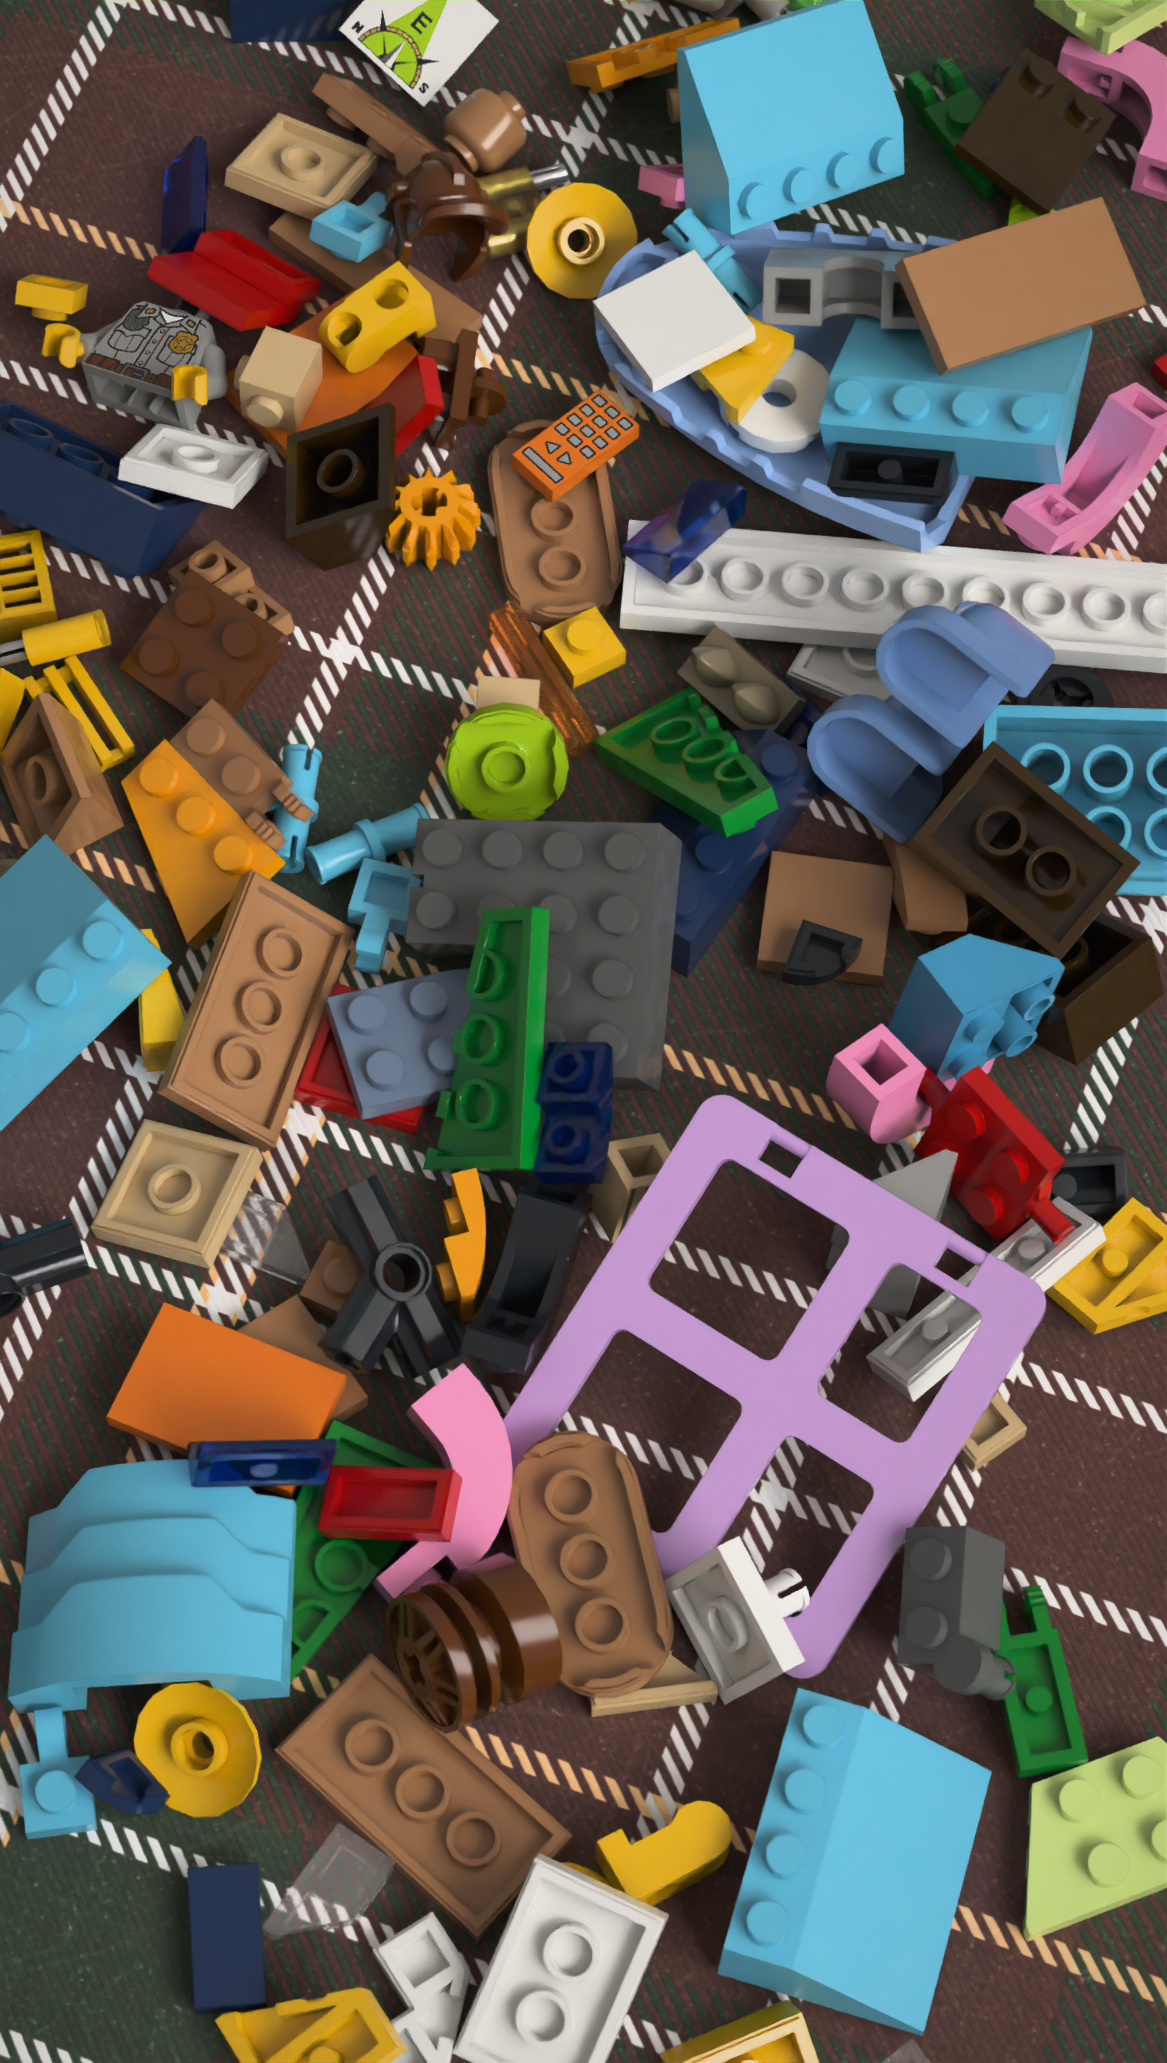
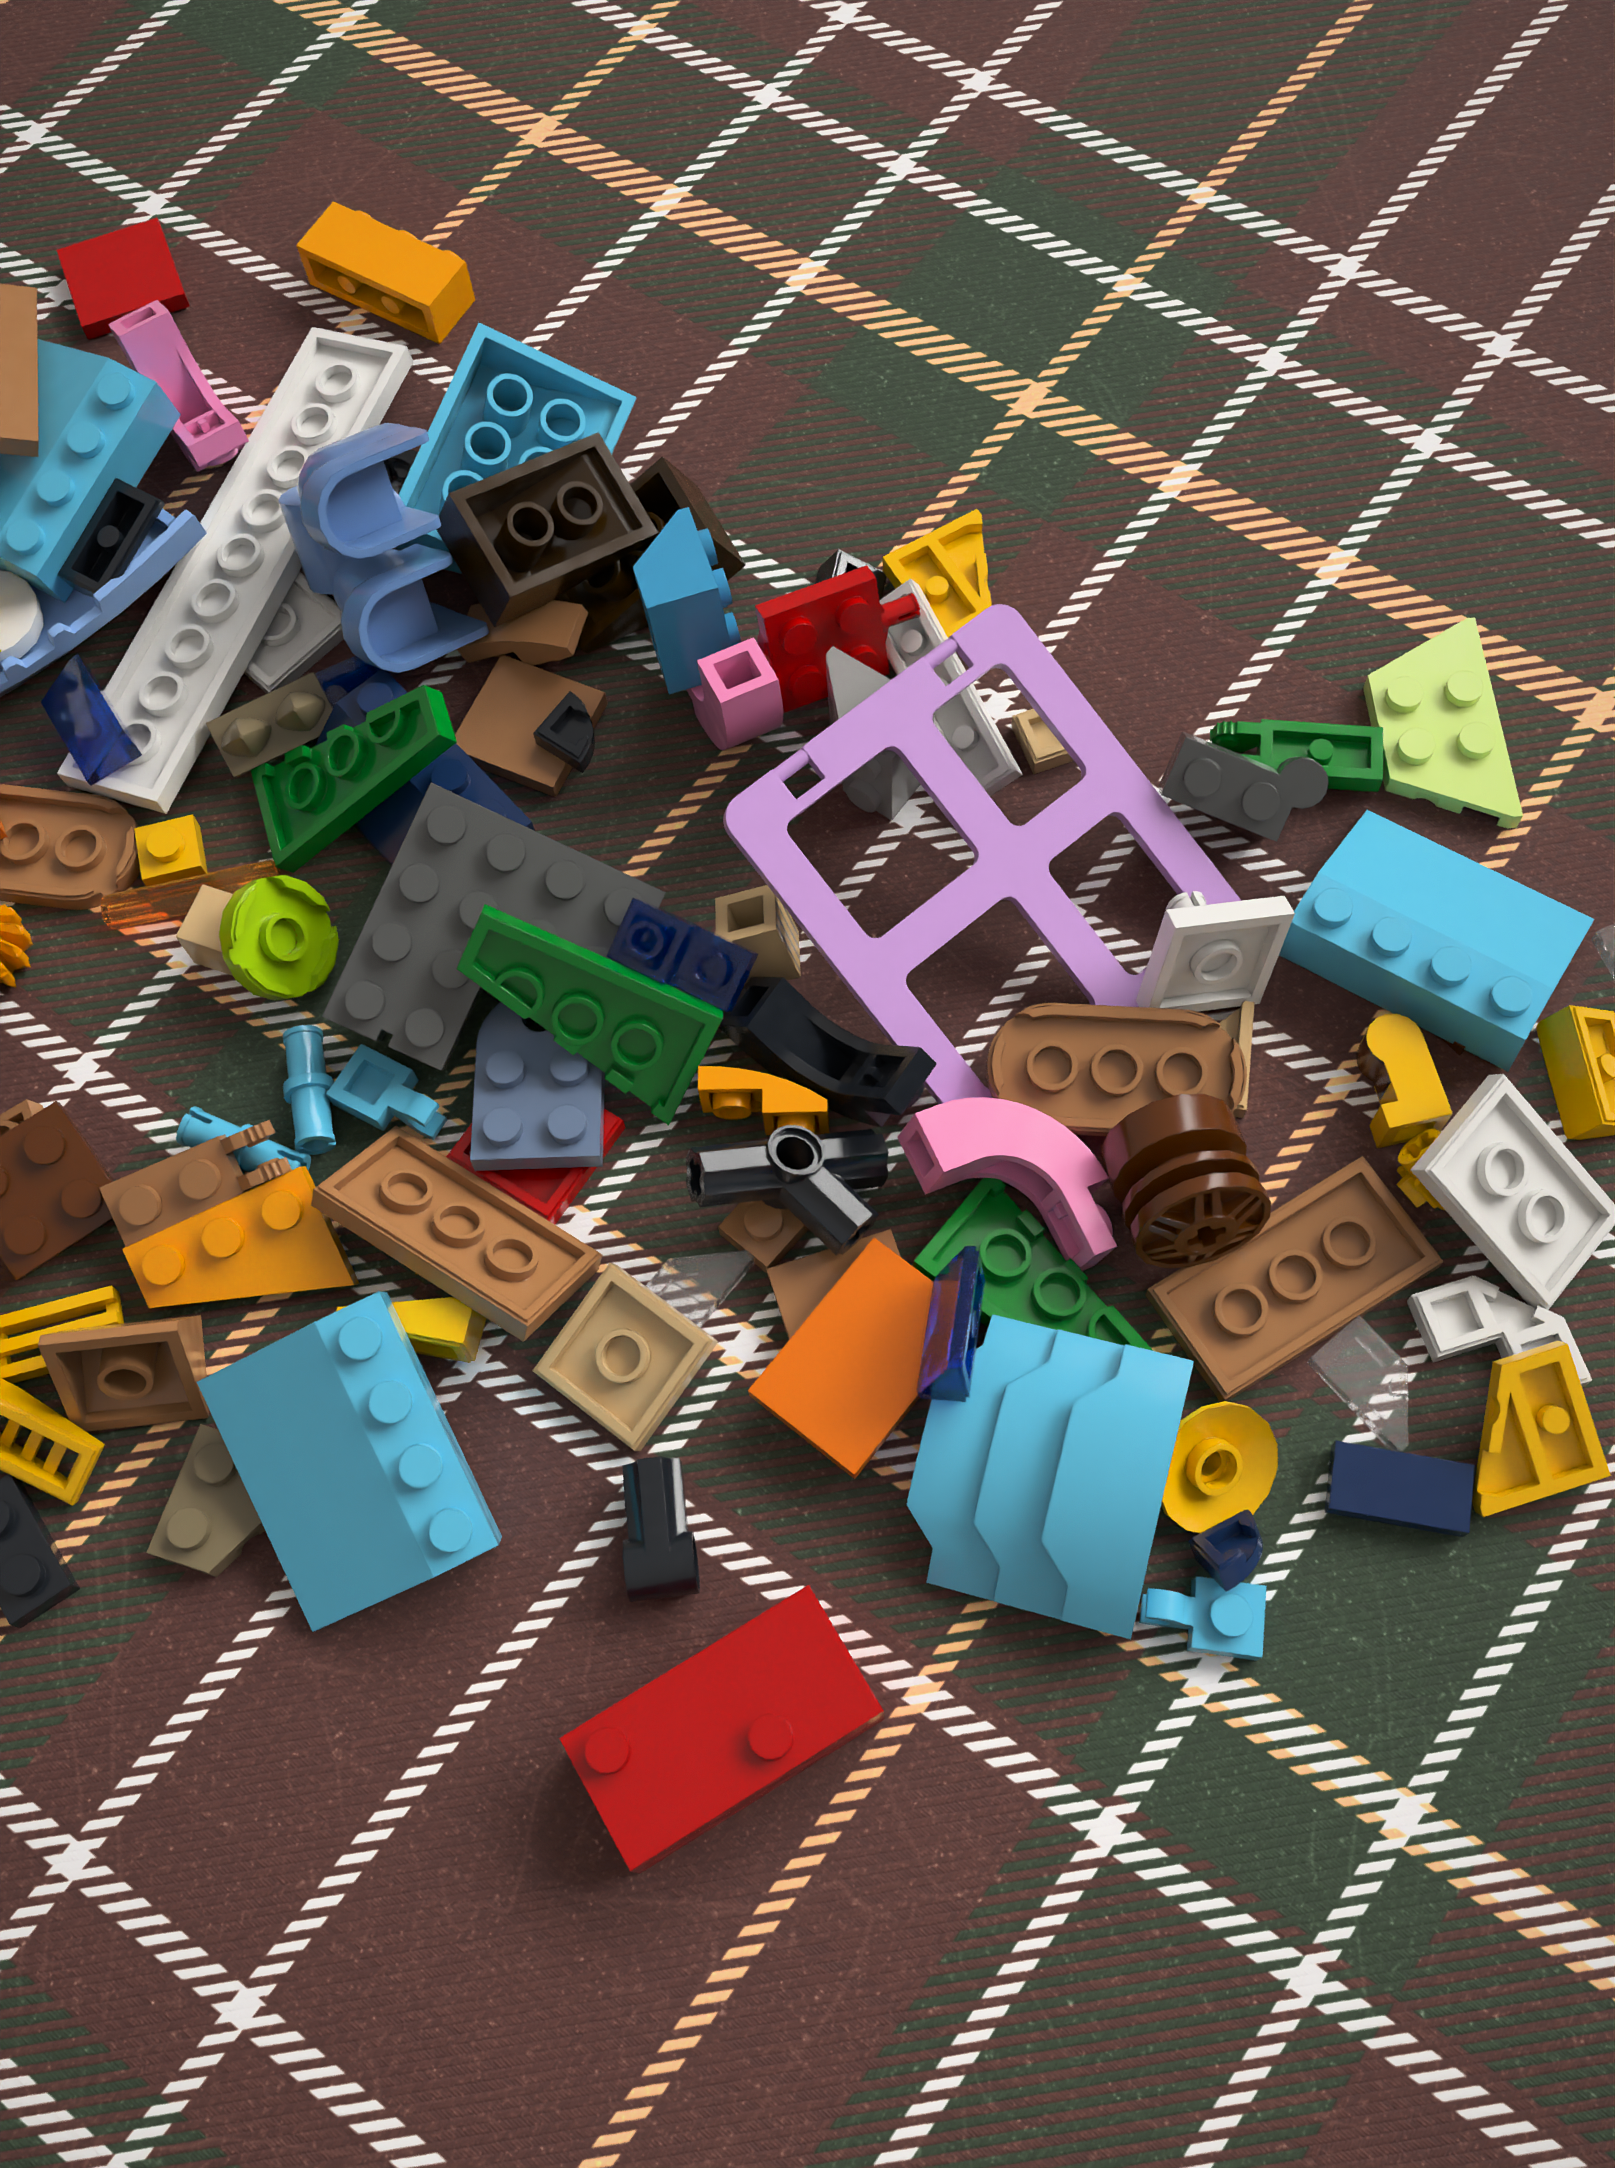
camera: 65 degrees left, 5 degrees up
(390, 1503) = (1026, 1222): red tile -> none

